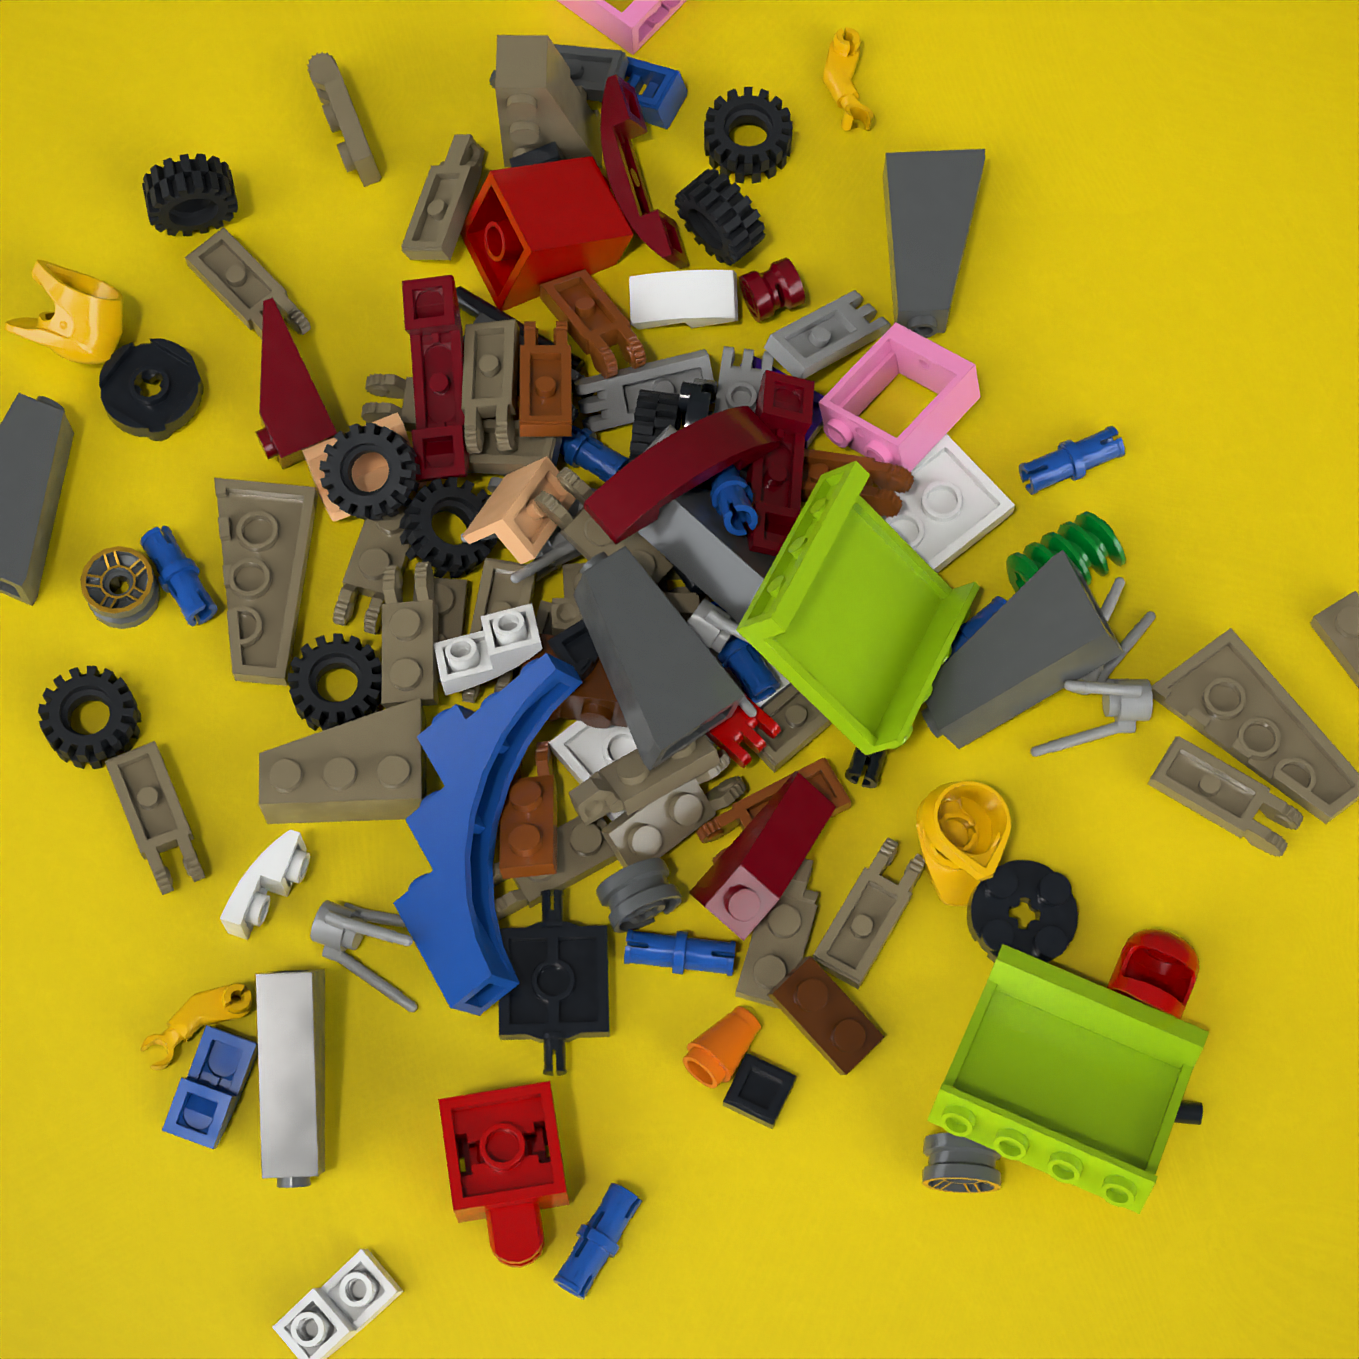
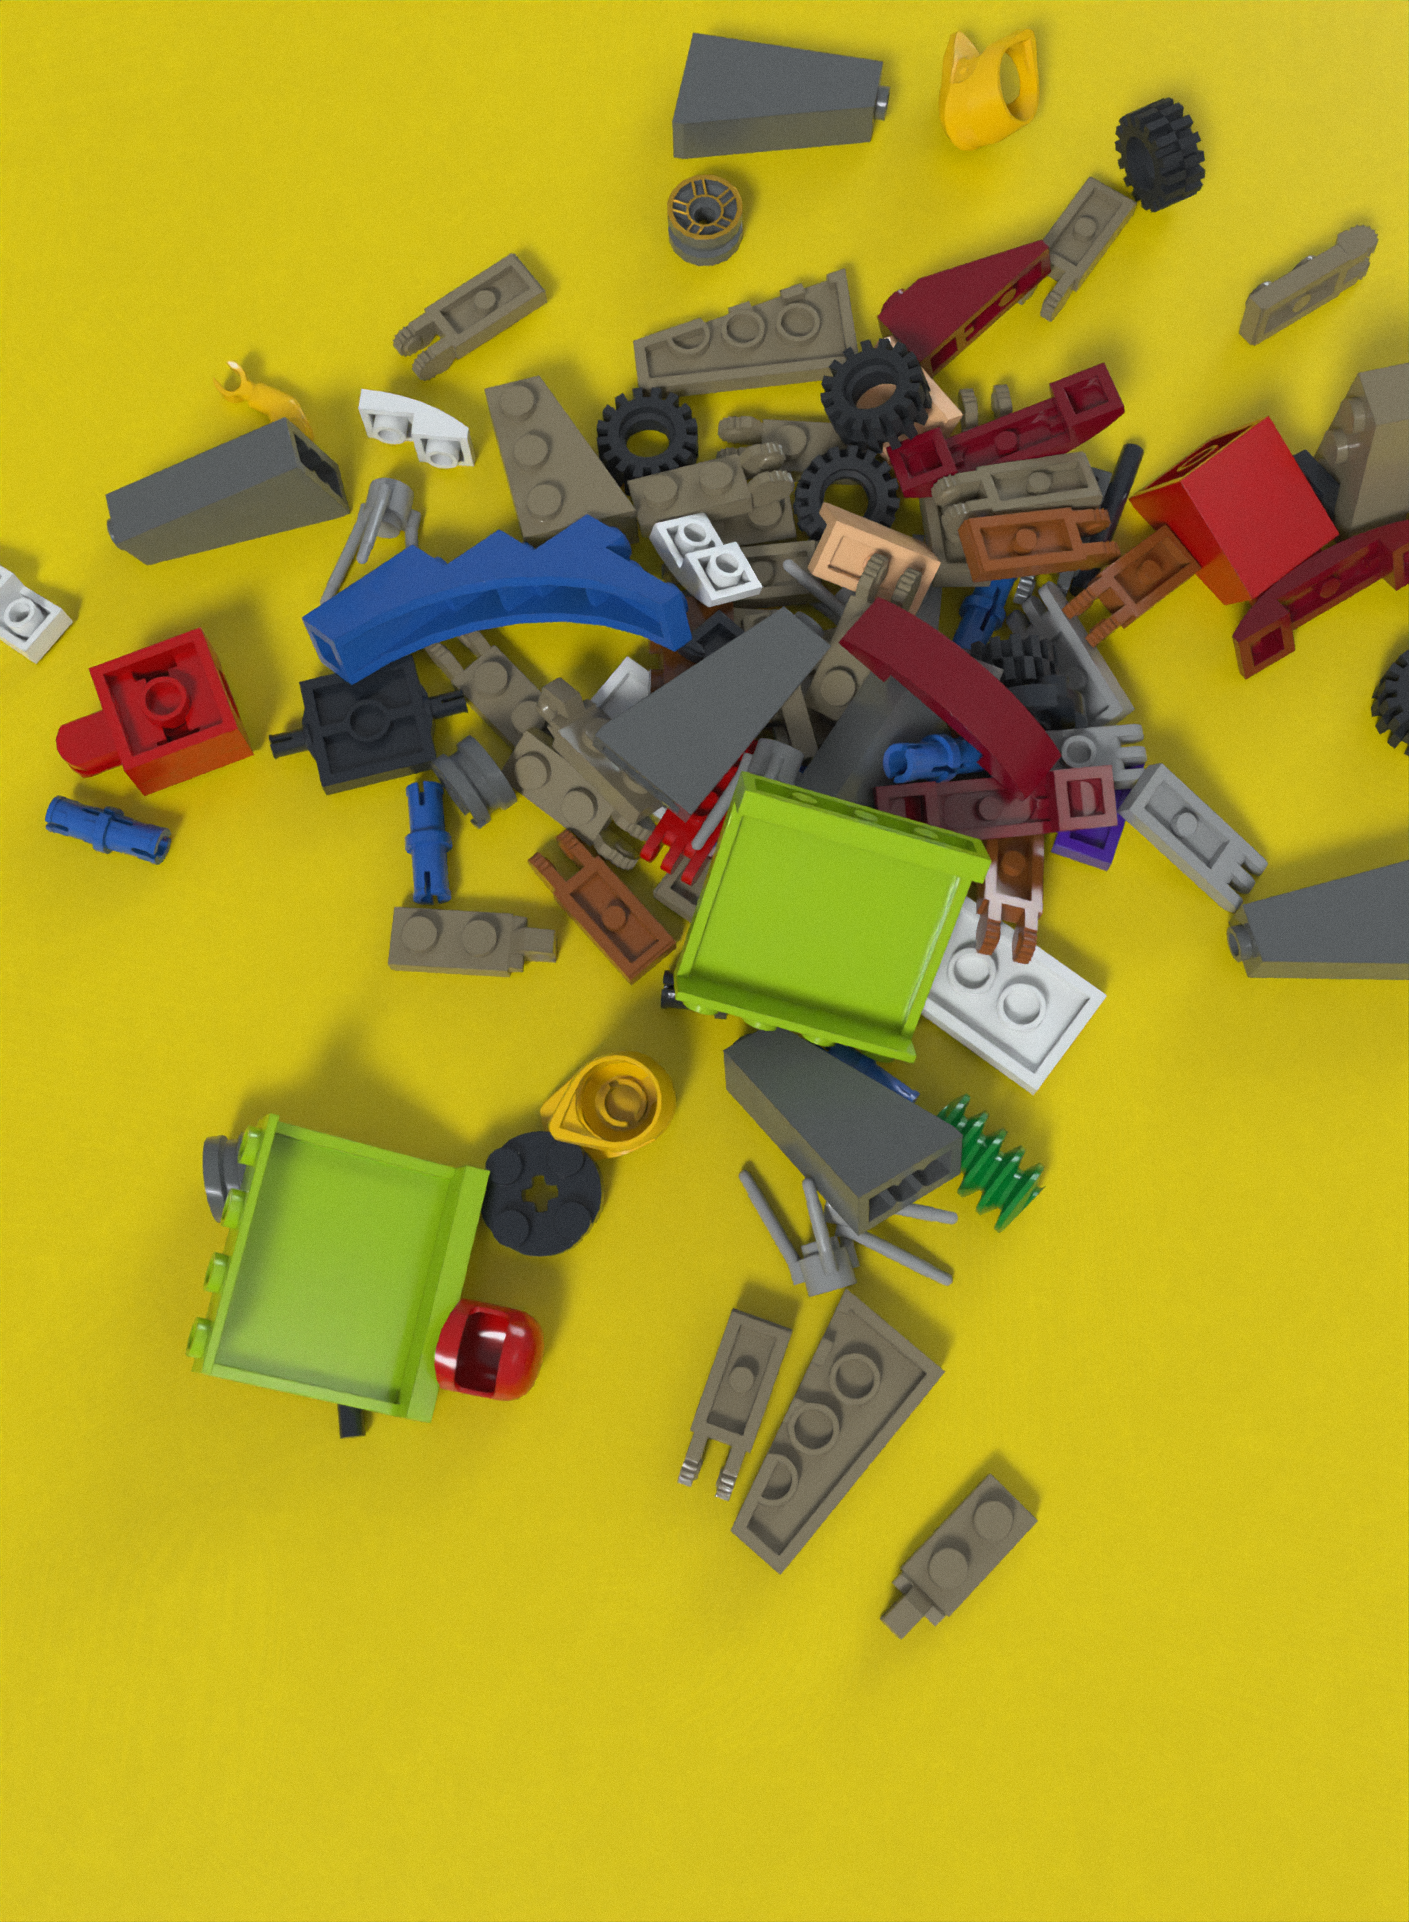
camera: 80 degrees right, 5 degrees up
(76, 691) = (554, 205): black tyre -> none
(158, 414) = (933, 216): black plate -> none
(178, 575) = (732, 268): blue pin -> none
(212, 1088) = (190, 429): blue slope -> none
(444, 202) = (1225, 405): dark tan hinge -> none
(530, 821) = (540, 654): dark orange hinge -> none
(683, 297) = (1196, 677): white slope -> none
(720, 216) = (1305, 685): black tyre -> none
(720, 1048) = (329, 905): orange cone -> none
(759, 1090) = (295, 957): black tile -> none
(764, 857) = (536, 896): dark red slope -> none
(772, 289) = (1236, 768): dark red wheel -> none
(825, 1015) = (382, 1003): reddish brown plate -> none
(867, 918) = (504, 1026): dark tan hinge -> none
(919, 360) = (1149, 894): bright pink window -> none
(1071, 460) = (1119, 1149): blue pin -> none

